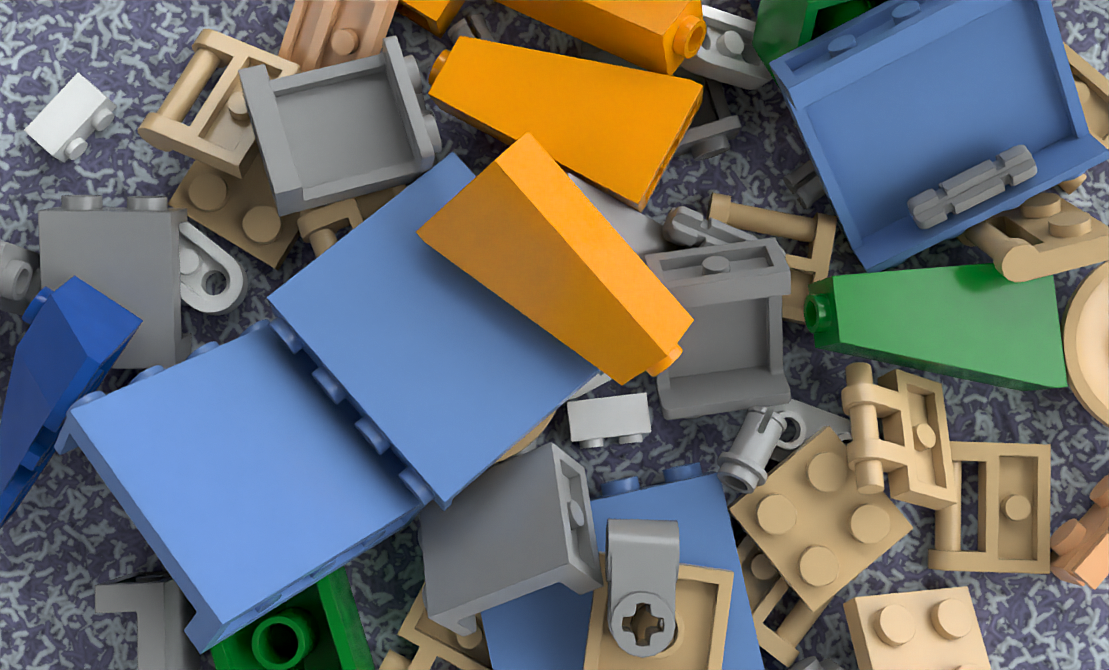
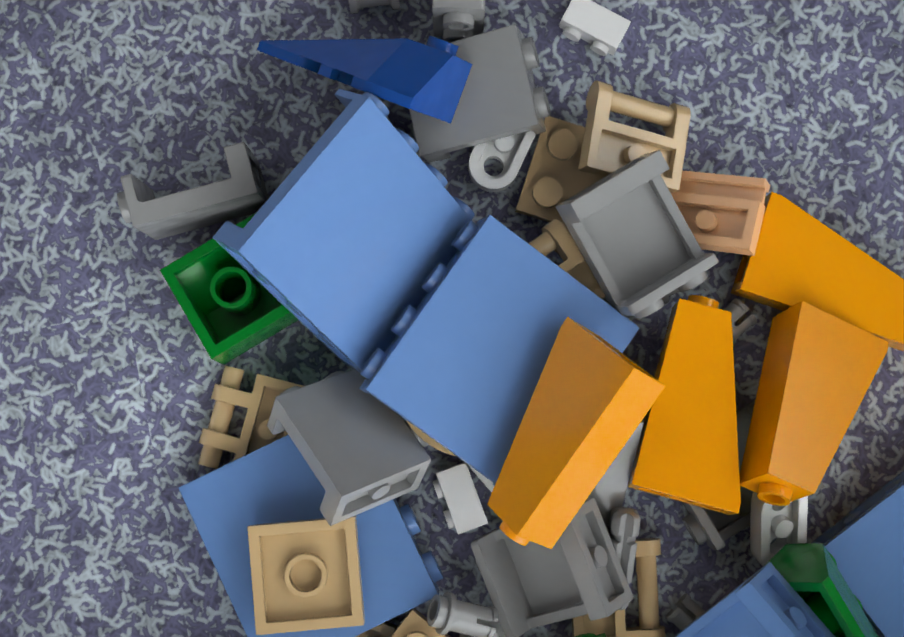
camera: 80 degrees right, 0 degrees up
(638, 570) = (350, 554): light grey piece -> none

